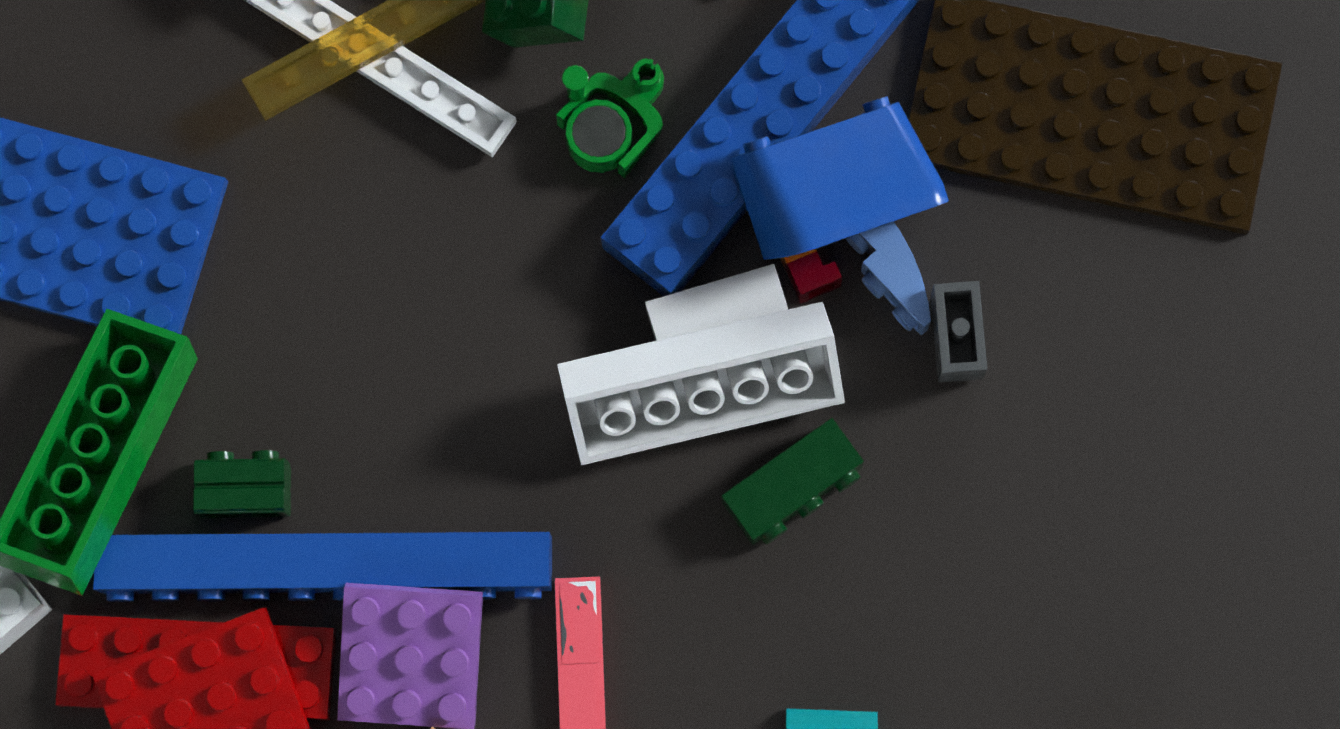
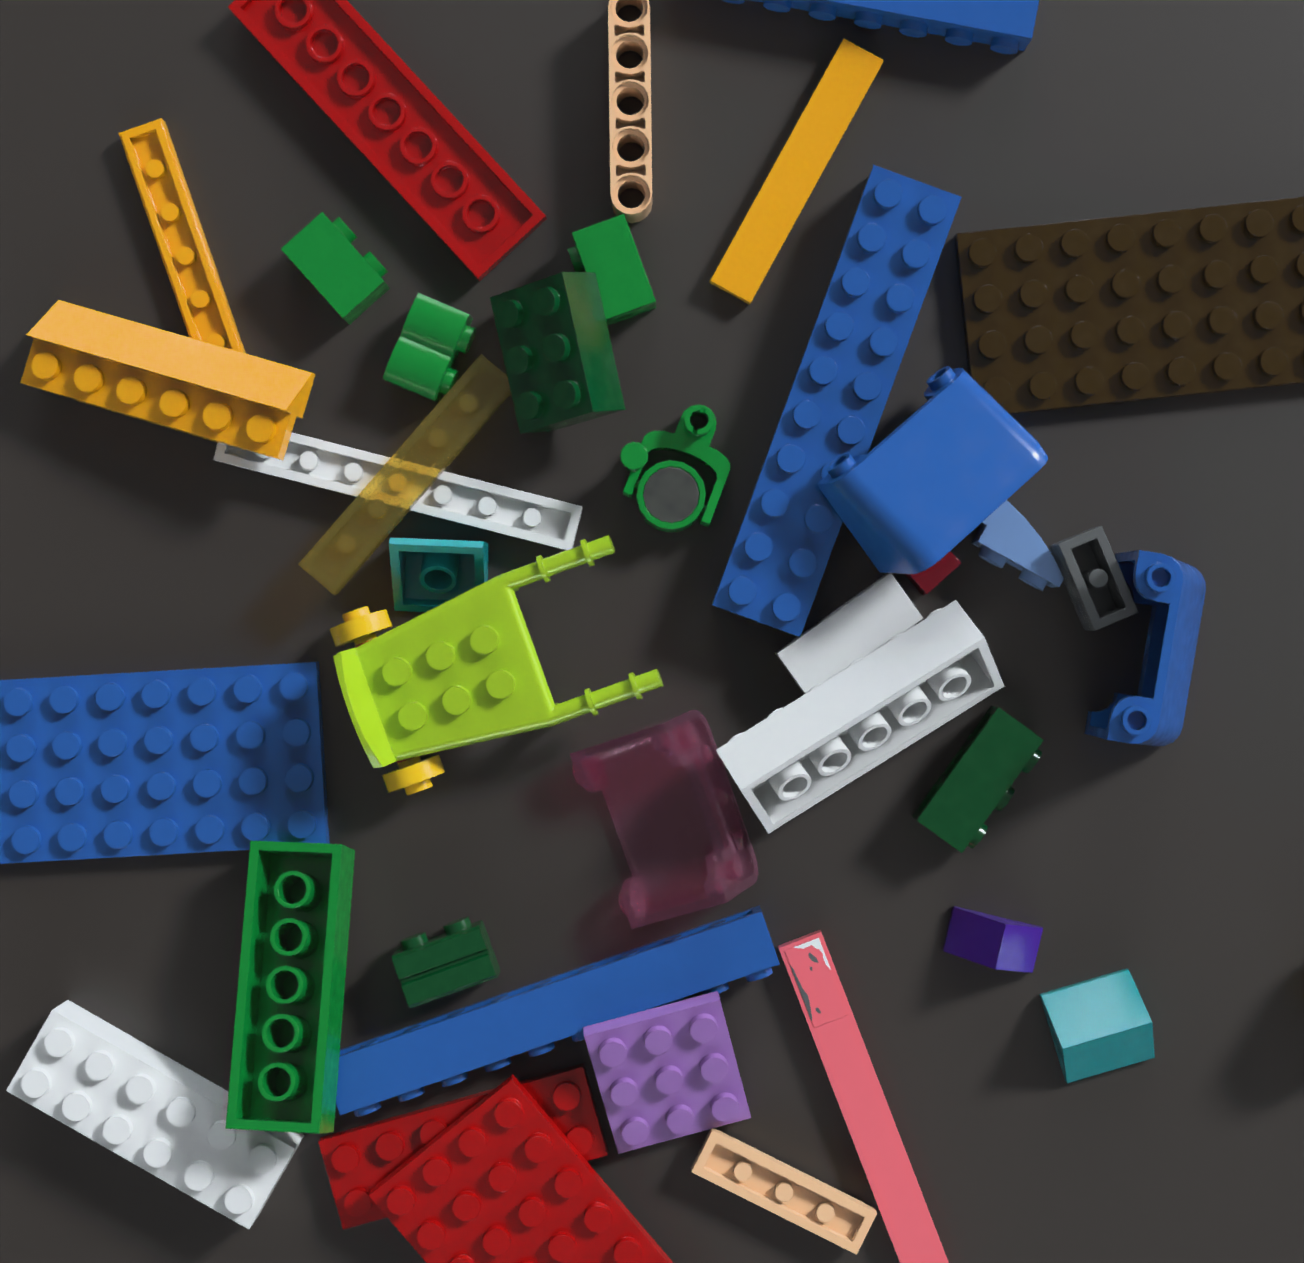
camera: 25 degrees left, 10 degrees up
(349, 223) = (459, 674): none -> lime piece
(365, 134) = (434, 570): none -> teal slope
(497, 418) = (671, 817): none -> clear pink windscreen
(759, 640) = (992, 940): none -> dark purple slope
(979, 469) = (1177, 604): none -> blue windscreen

